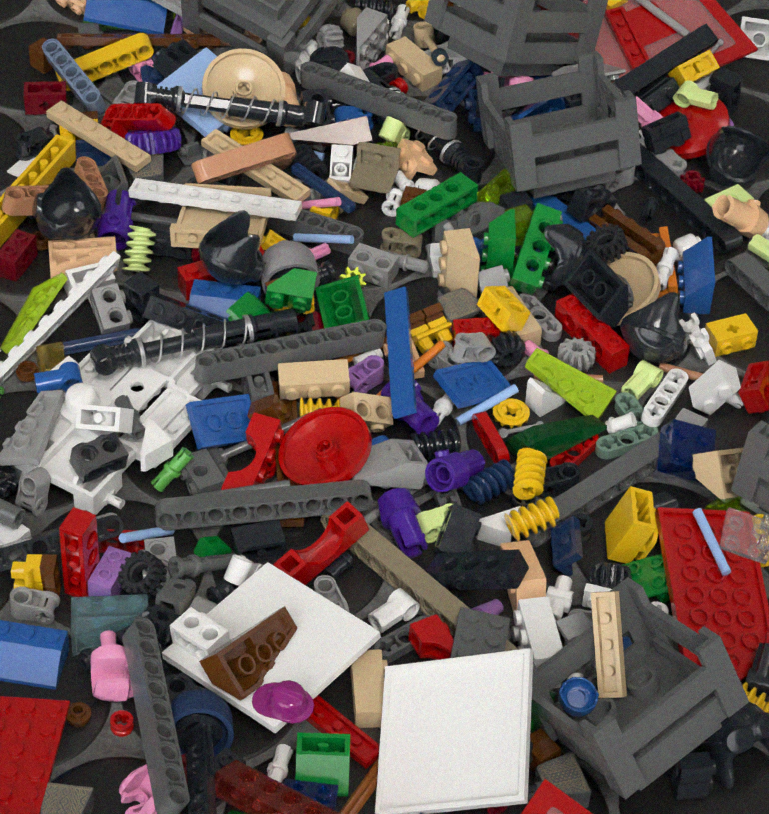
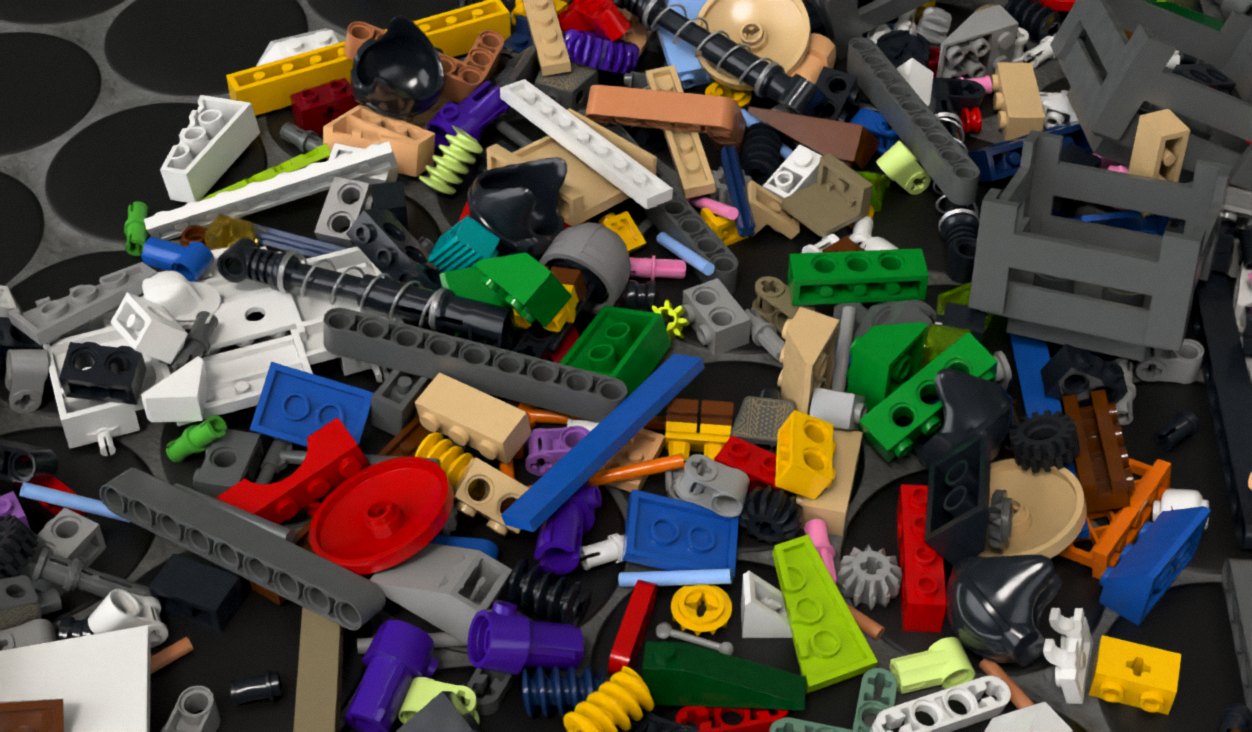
camera: 40 degrees right, 0 degrees up
(24, 280) = (301, 138): none -> dark grey pin
(211, 546) = (144, 565): green slope -> none
(222, 291) = (463, 246): none -> teal brick
(269, 406) = (374, 429): reddish brown brick -> none
(343, 530) = (198, 658): red arch -> none
(415, 159) = (906, 212): light nougat bracket -> none
(425, 39) = (1048, 99): tan piece -> none
(544, 57) = (1159, 147): none -> tan brick
(549, 321) = (865, 507): light grey beam -> none
(621, 423) = (833, 713): white pin -> none
(665, 266) = (1108, 520): white pin -> none

